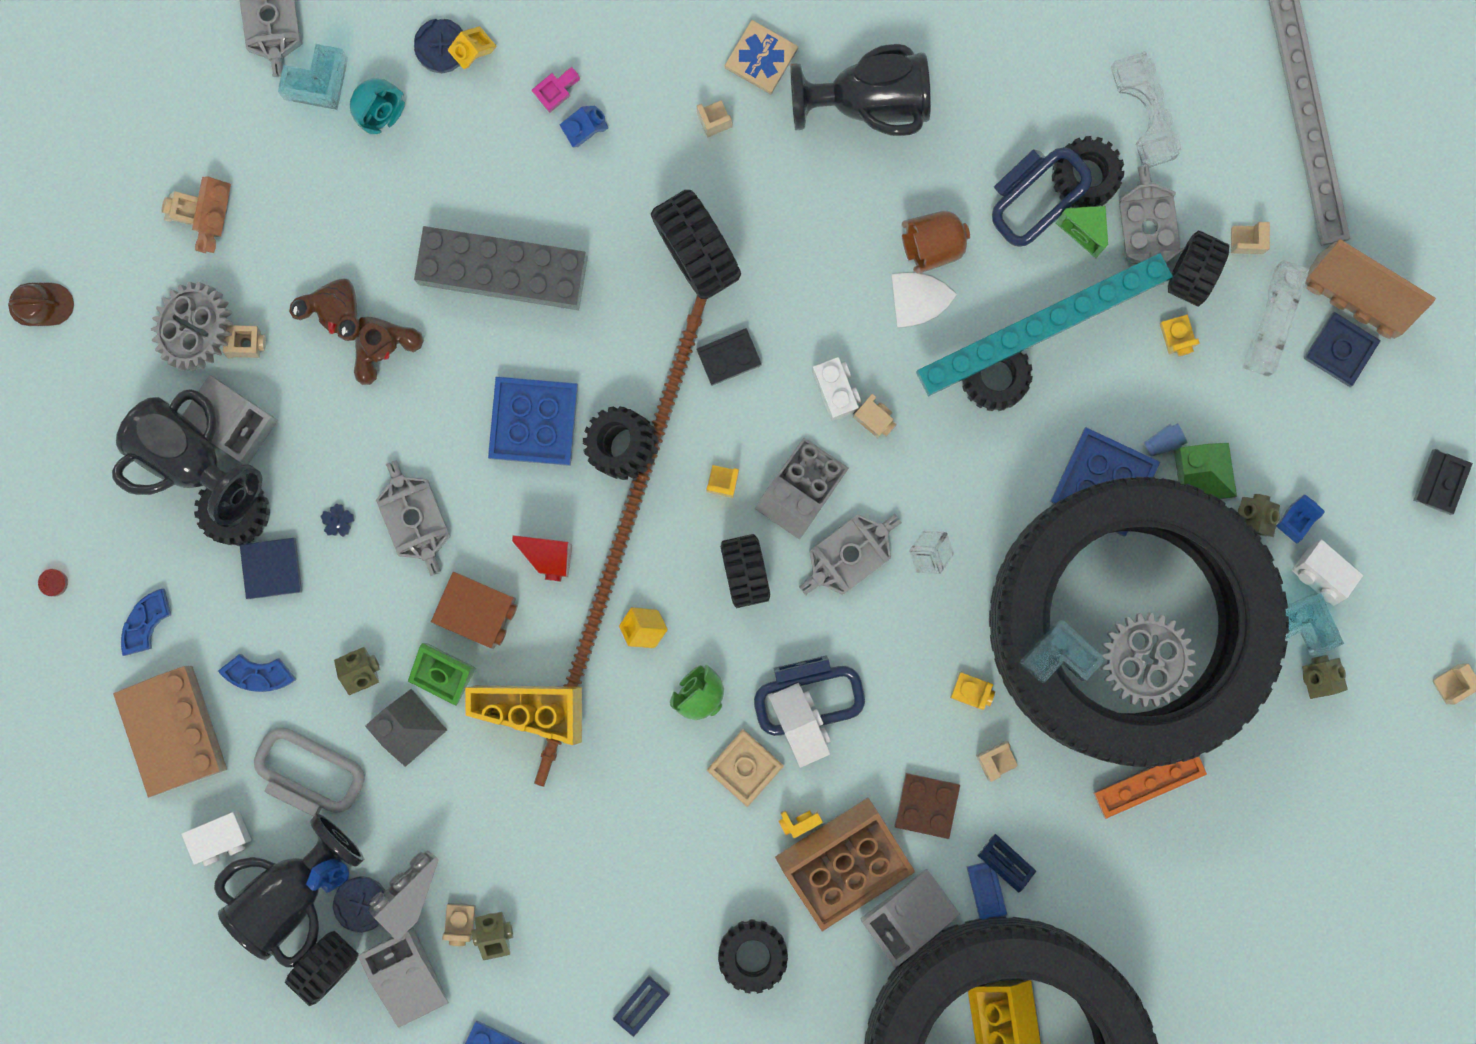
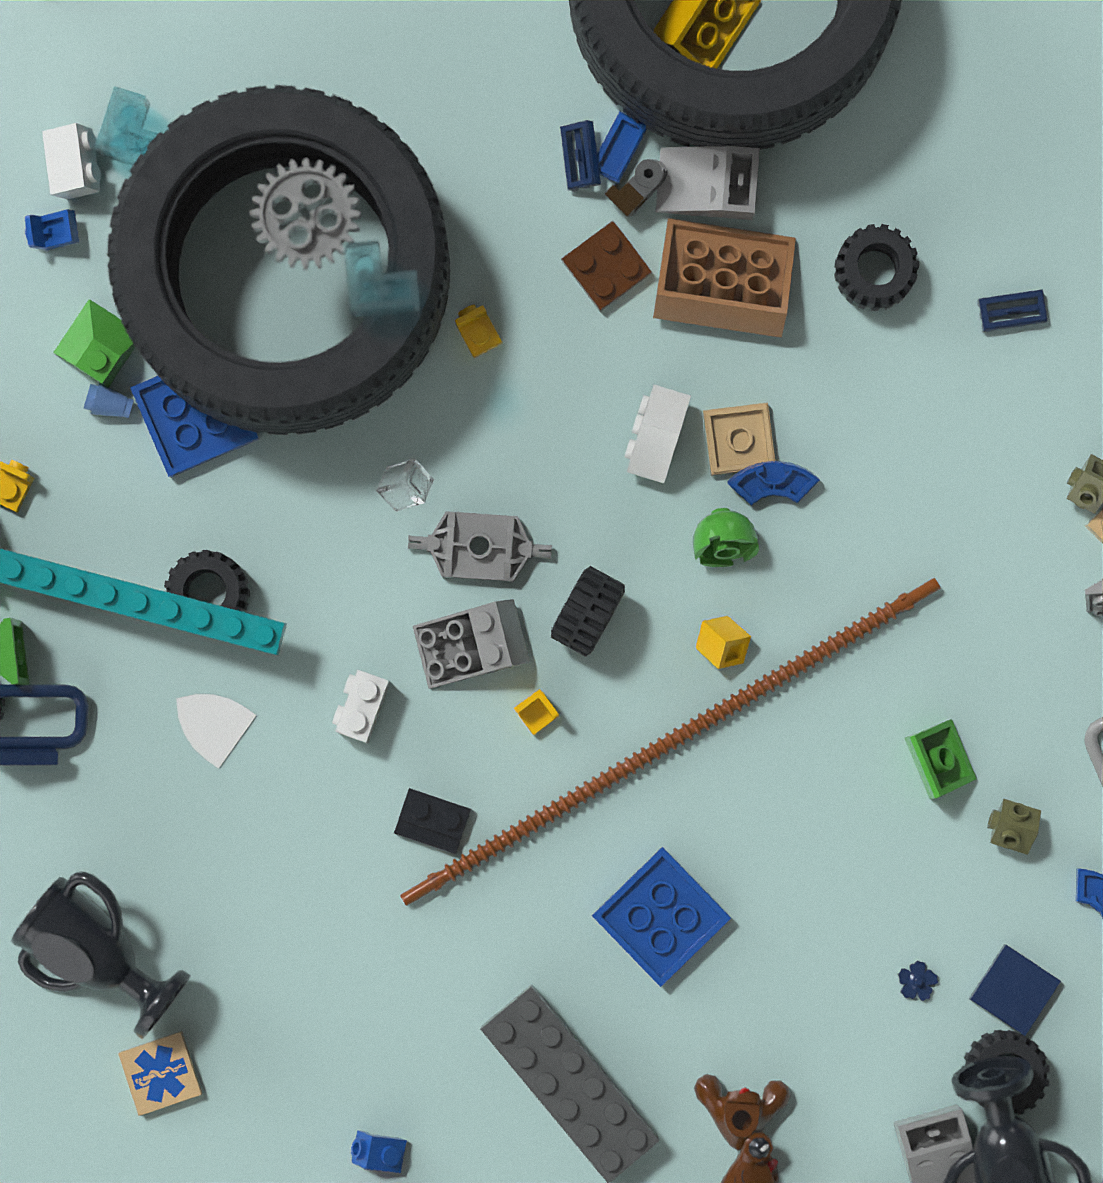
camera: 140 degrees left, 0 degrees up
(406, 727) = (1013, 736): dark grey slope -> none
(424, 537) = (844, 895): light grey plate -> none
(474, 610) = (862, 788): dark orange panel -> none
(541, 710) = (881, 648): yellow wedge -> none
(546, 556) = (755, 782): red slope -> none
(604, 431) = (614, 845): black tyre -> none
(696, 244) = (374, 945): black tyre -> none
(701, 760) = (772, 479): none -> blue tile
(714, 118) = (253, 1053): tan panel -> none
(804, 823) = (728, 343): yellow bracket -> none
(806, 673) = (613, 475): dark blue bar -> none
(875, 417) = (349, 649): tan brick -> none
(934, 240) = (153, 762): dark orange cylinder -> none
(950, 883) = (647, 179): none -> leg
(997, 761) = (510, 251): tan panel -> none
(1147, 785) = (403, 117): orange plate -> none
(1260, 513) = (85, 264): olive brick -> none
(1324, 677) = (156, 73): olive brick -> none

